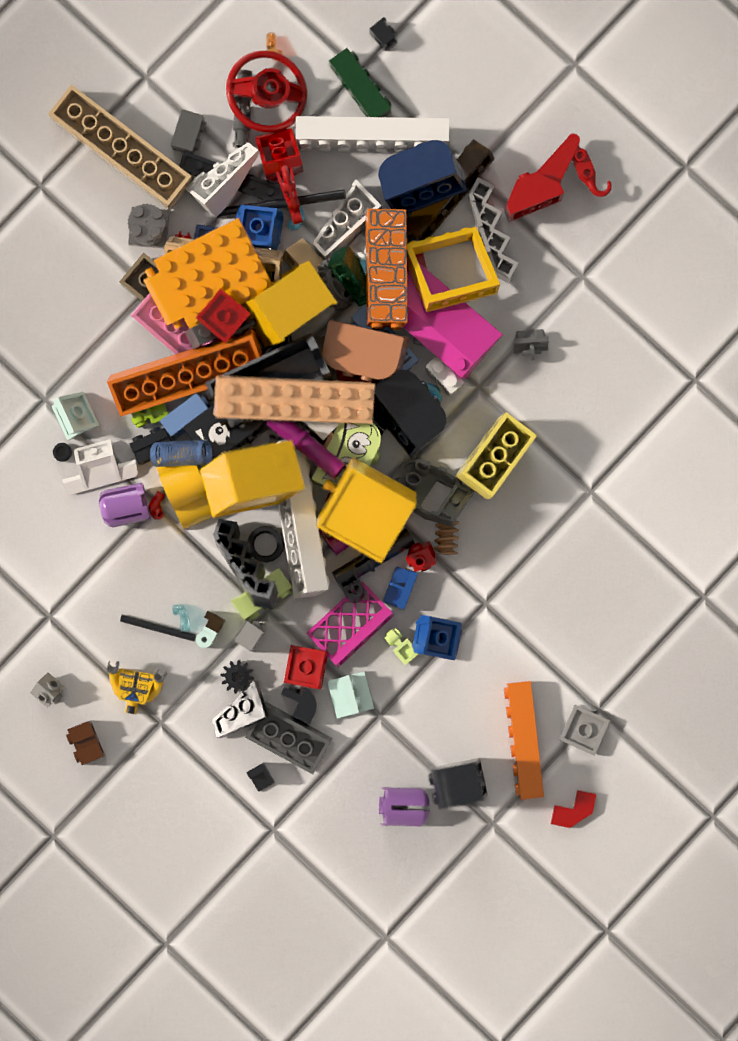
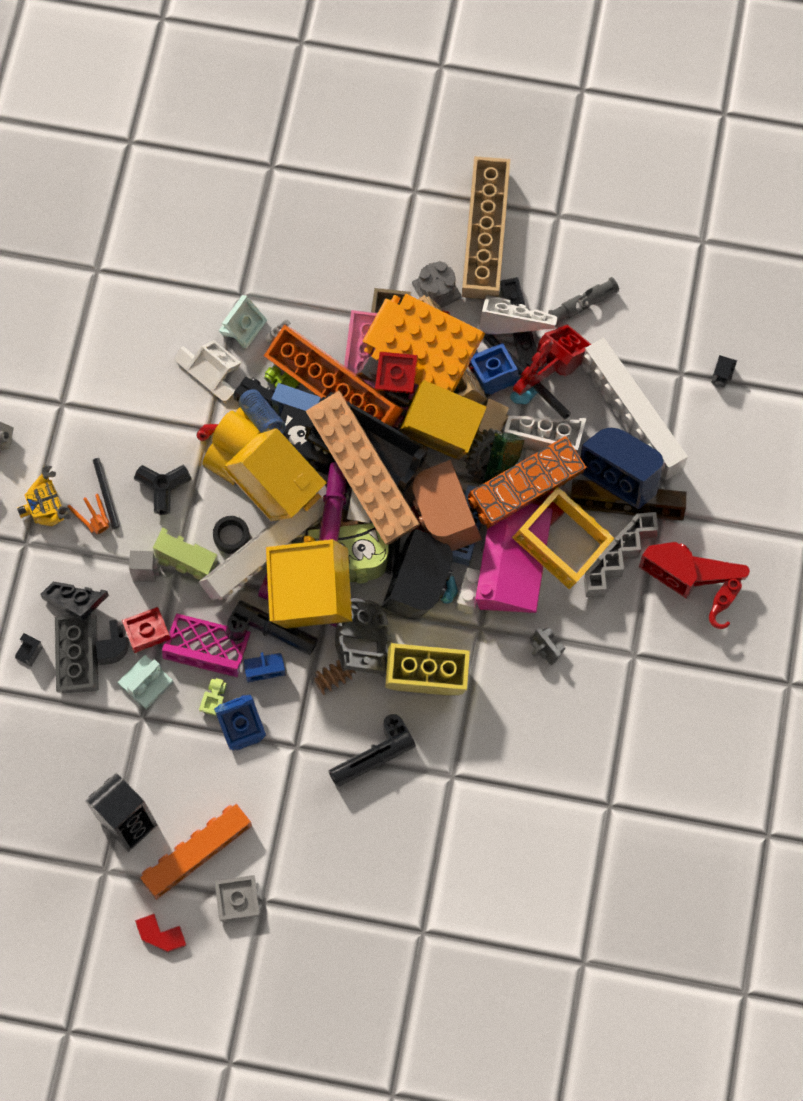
camera: 55 degrees right, 15 degrees down
(62, 452) = (206, 333): black plate -> none
(102, 389) = (272, 335): none -> light grey gear
(124, 505) = (191, 403): medium lavender cylinder -> none
(182, 651) = (98, 523): none -> orange plant
(183, 562) = (162, 496): none -> black piece
(184, 617) = (128, 506): clear light blue arm -> none
(188, 132) = (535, 271): dark grey brick -> none
(210, 631) = (129, 534): leg -> none
(238, 684) = (104, 571): black gear -> none
(247, 571) = (200, 521): black brick -> none
(255, 88) = (618, 319): red piece -> none
(271, 43) = (649, 293): clear orange arm -> none
(359, 85) = (667, 377): dark green brick -> none
(404, 797) = (62, 783): medium lavender cylinder -> none
(421, 556) = (301, 665): red brick -> none
(538, 520) = (377, 754): none -> black piece

